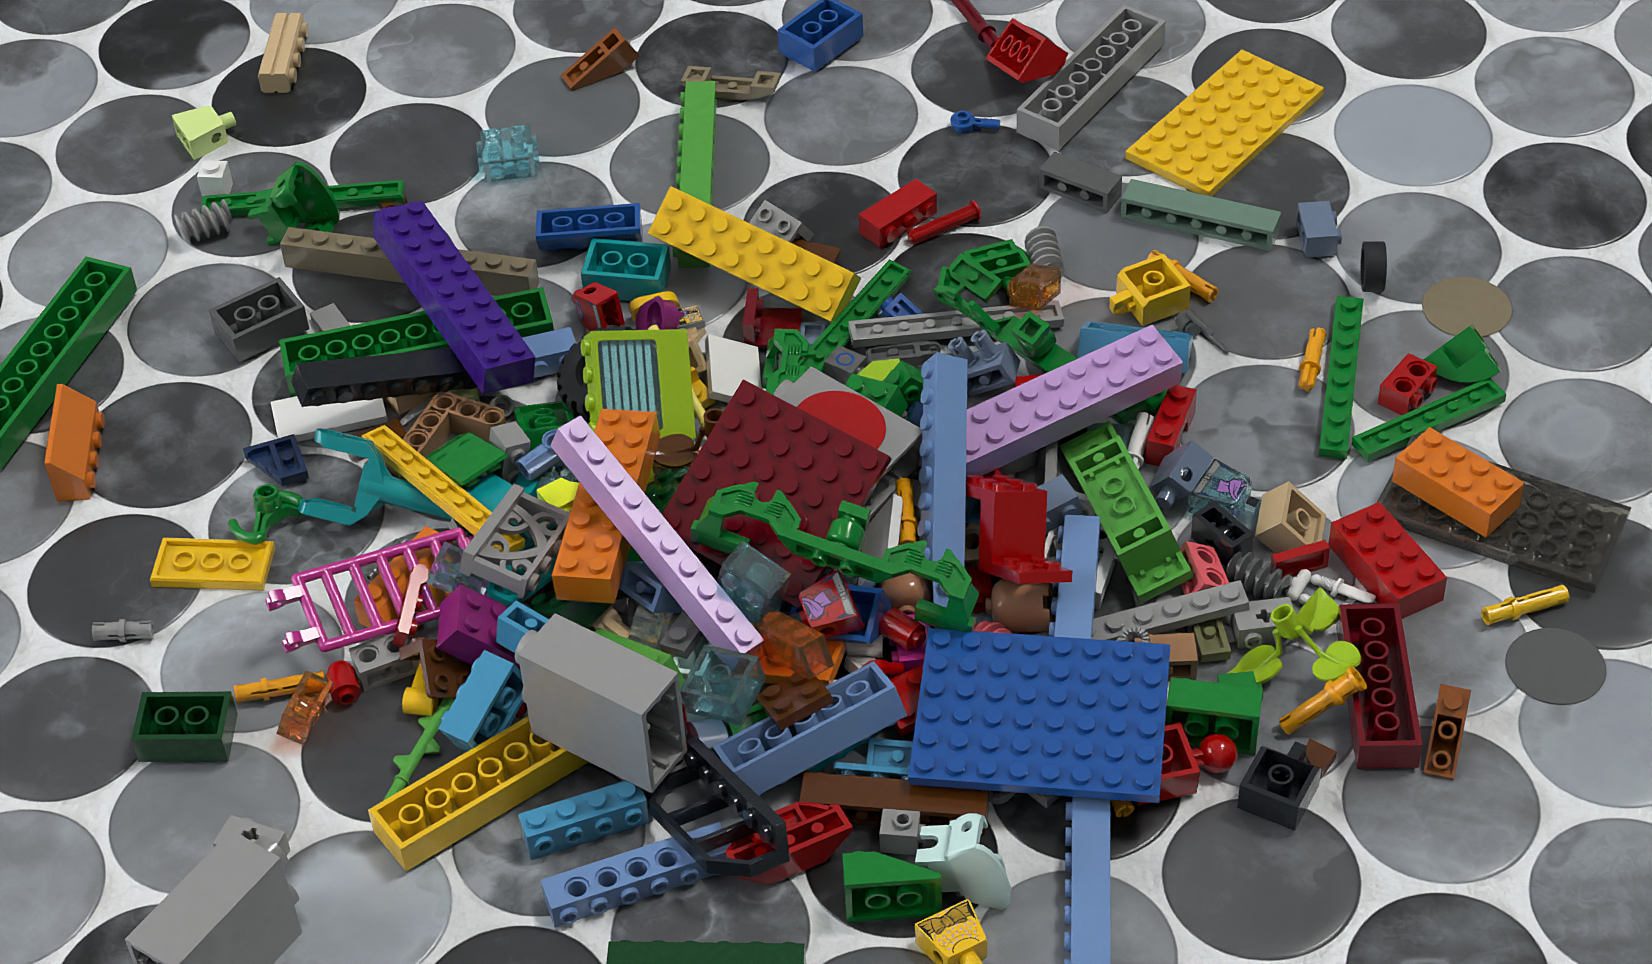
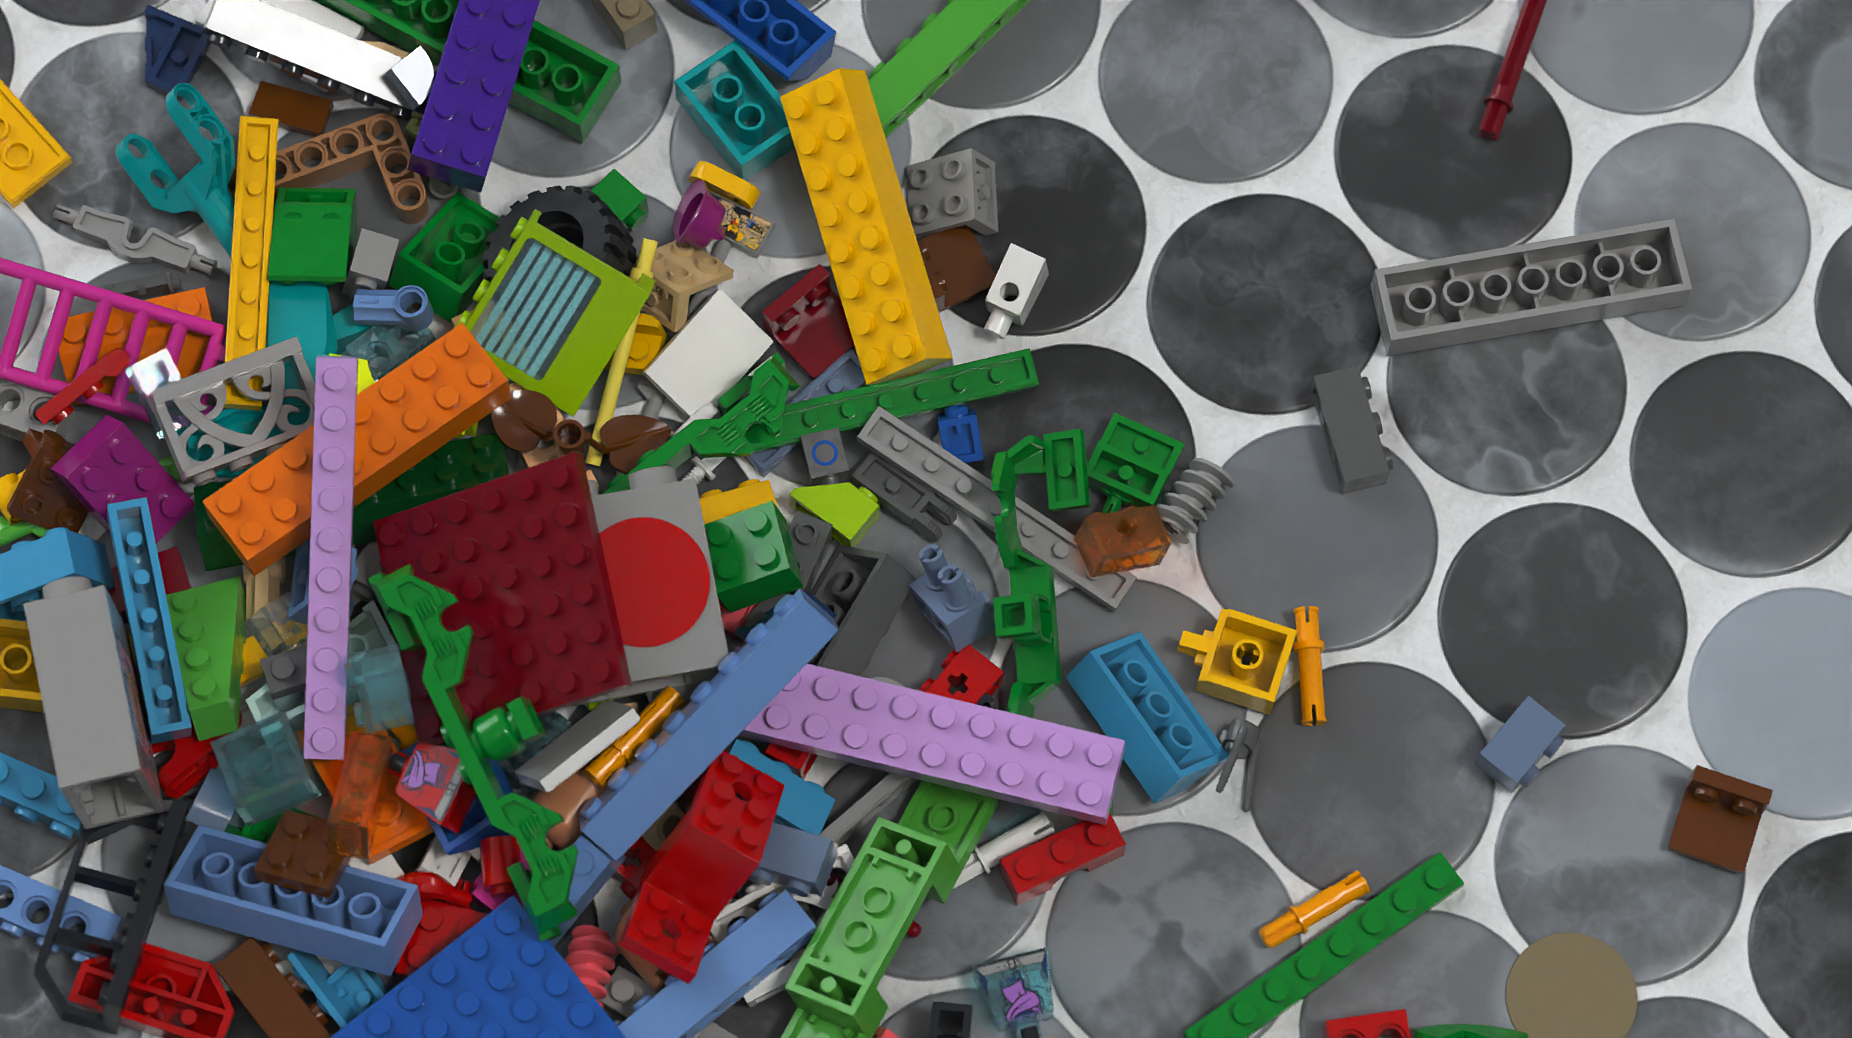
camera: 40 degrees right, 25 degrees up
(270, 508) = (91, 119): green piece -> none
(366, 543) = (153, 247): none -> light grey piece
(444, 349) = (413, 77): none -> brick
(549, 350) = (551, 154): medium blue brick -> none
(598, 306) = (656, 134): red torso -> none
(858, 246) = (1021, 276): none -> white torso
(898, 213) = (1108, 291): red brick -> none
(908, 380) = (841, 554): green brick -> none
(945, 223) = (1144, 349): red axle -> none
(965, 122) = (1329, 216): blue plate -> none
(1026, 53) = (1482, 192): red slope -> none
(1173, 481) = (986, 932): sand blue torso -> none
(1201, 214) = (1426, 600): sand green brick -> none
(1224, 123) = (1615, 489): yellow plate -> none
(1373, 266) = (1512, 857): black tyre -> none
(1433, 191) = (1718, 819): none -> reddish brown bracket

